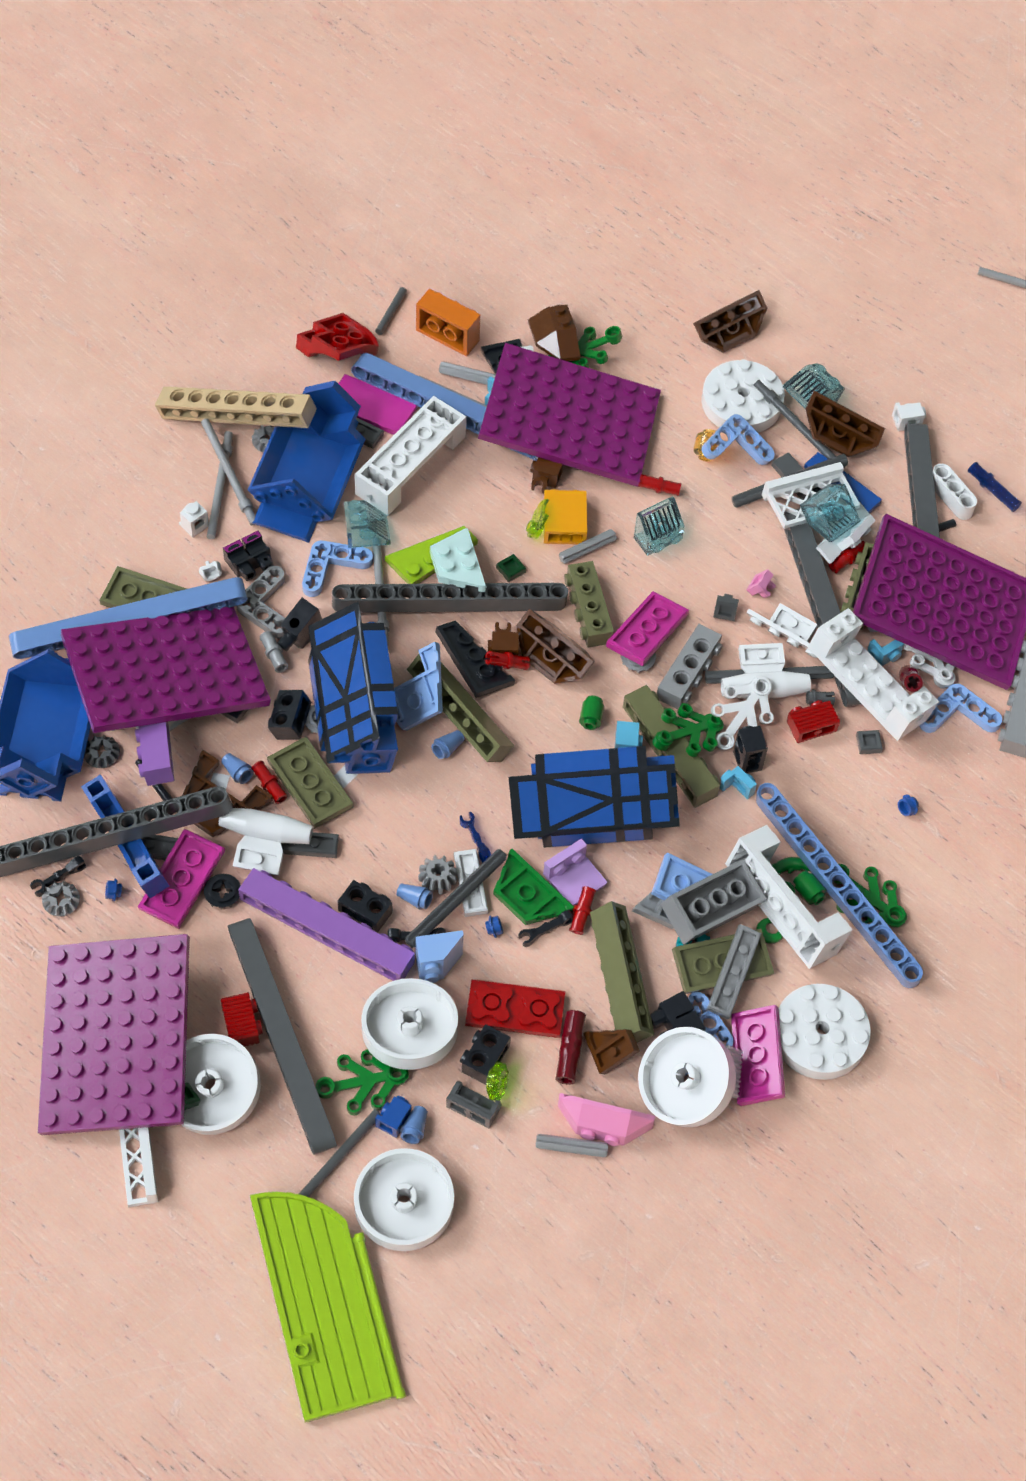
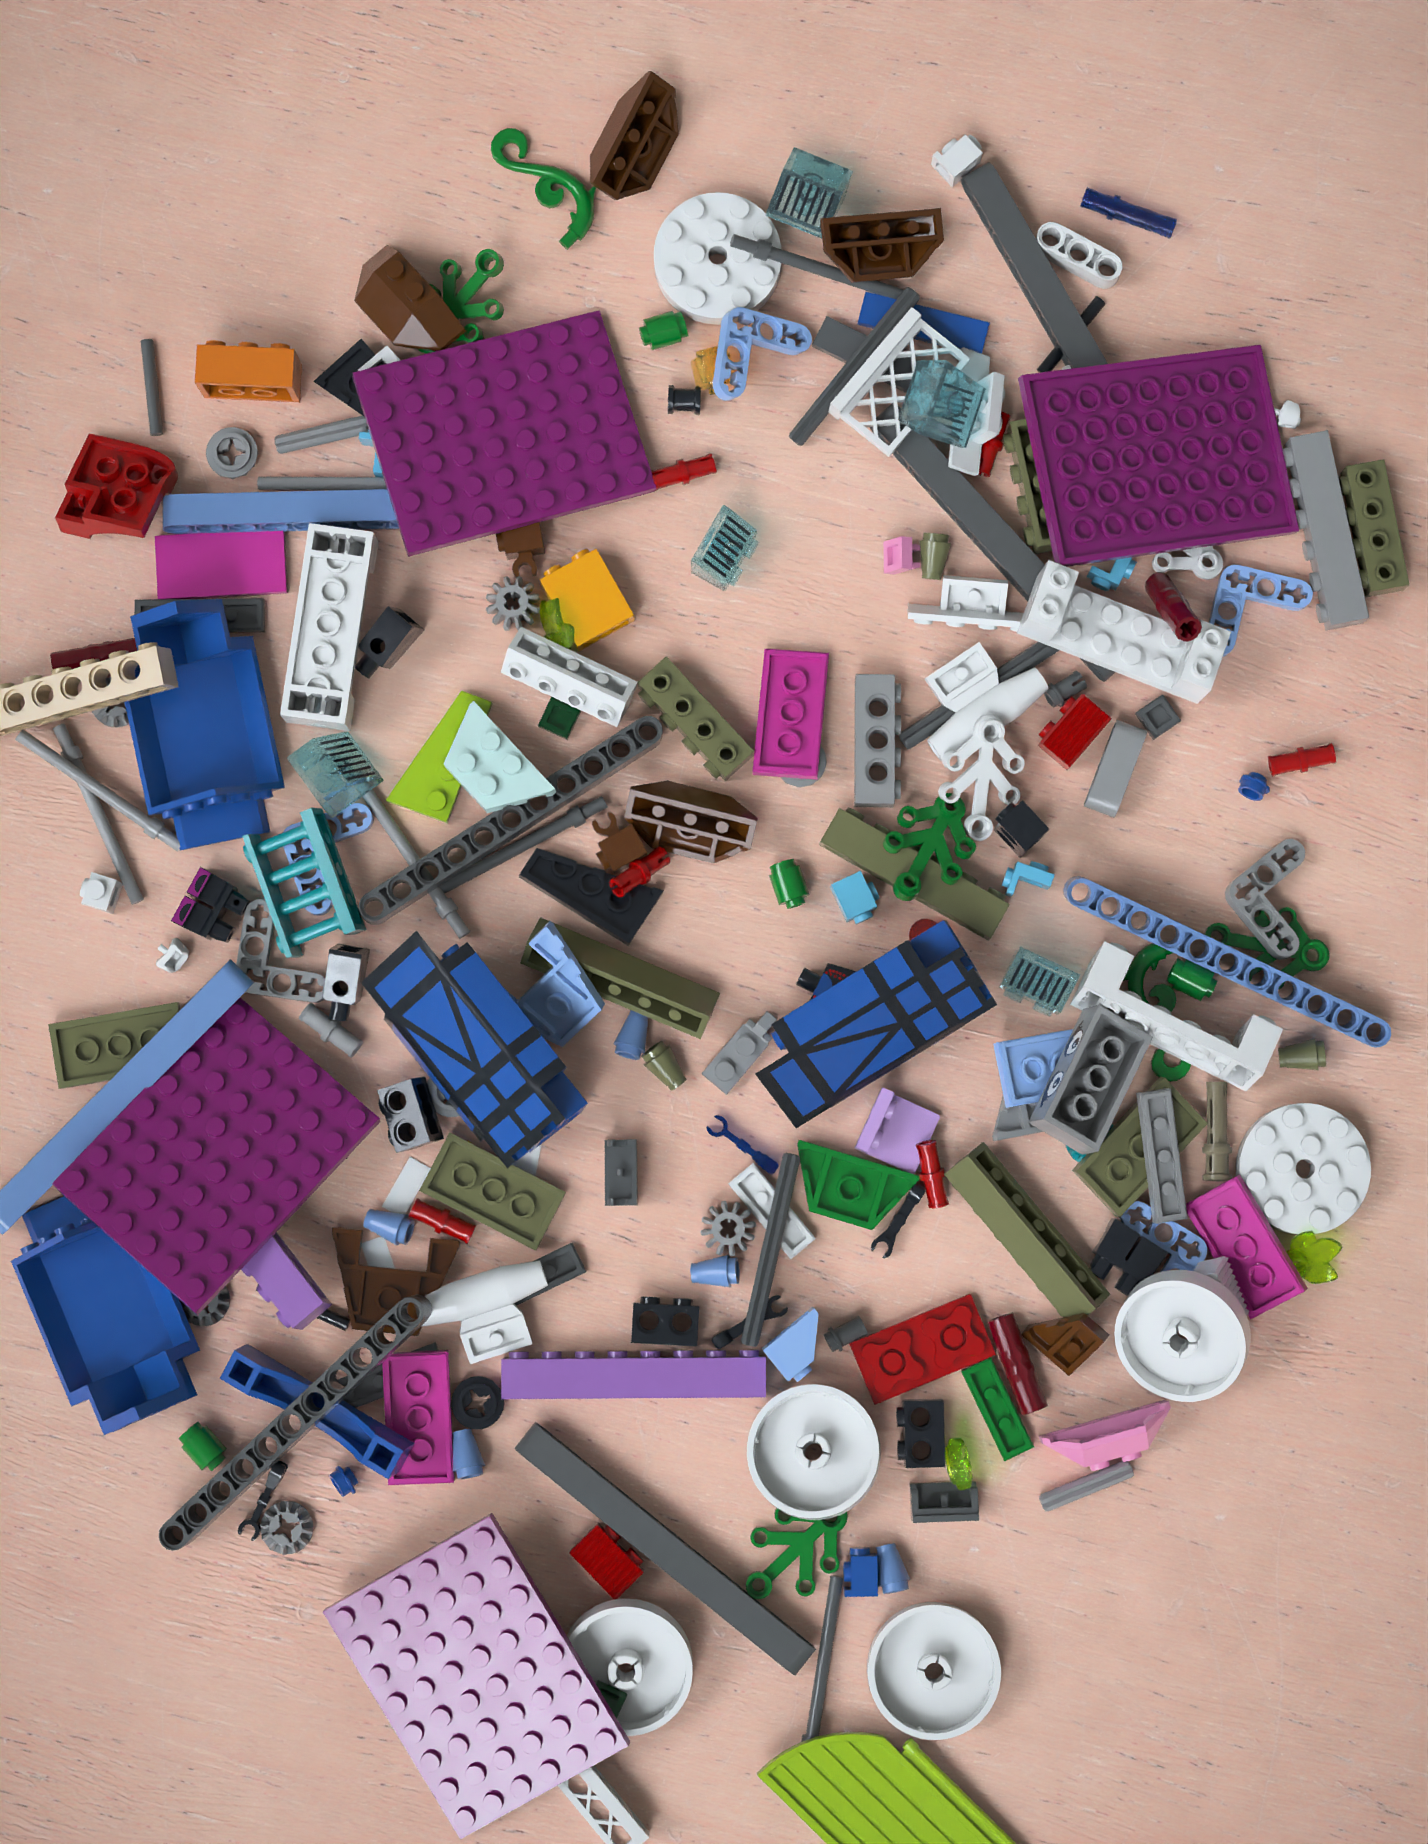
camera: 25 degrees left, 25 degrees up
(43, 821) = (203, 1447): none -> green brick
(195, 916) = (466, 1455): none -> medium blue cone
(261, 754) = (406, 1186): none -> white sticker
(327, 577) = (335, 888): none -> teal fence
(394, 812) = (621, 1173): none -> dark grey hinge
(411, 351) = (221, 443): none -> light grey gear
(439, 478) = (396, 631): none -> black torso
(456, 768) = (663, 1065): none -> olive cone
(472, 972) = (845, 1334): none -> dark grey pin
(487, 619) = (575, 817): none -> dark grey bar
(494, 926) = (836, 1256): blue plate -> none
(496, 790) = (739, 1053): none -> light grey hinge
(521, 498) = (501, 607): none -> light grey gear
(530, 545) = (568, 676): none -> white brick
(541, 1069) = (997, 1409): none -> green tile
(587, 546) = (641, 626): light grey axle -> none
(666, 324) = (549, 176): none -> green plant
(682, 451) = (684, 399): none -> black bush
(691, 414) = (663, 330): none -> green brick
(712, 835) = (1038, 982): none -> clear light blue slope
(726, 607) = (874, 620): dark grey tile -> none
(772, 991) = (1217, 1149): none -> dark tan pin
(782, 592) = (934, 553): none -> olive cone
(801, 1086) = (1314, 1257): none -> clear neon green plate
(827, 753) = (1115, 768): none -> light grey beam
(857, 967) = (1303, 1055): none -> olive cone
(877, 864) = (1257, 901): none -> light grey beam
(946, 806) = (1302, 759): none -> red pin

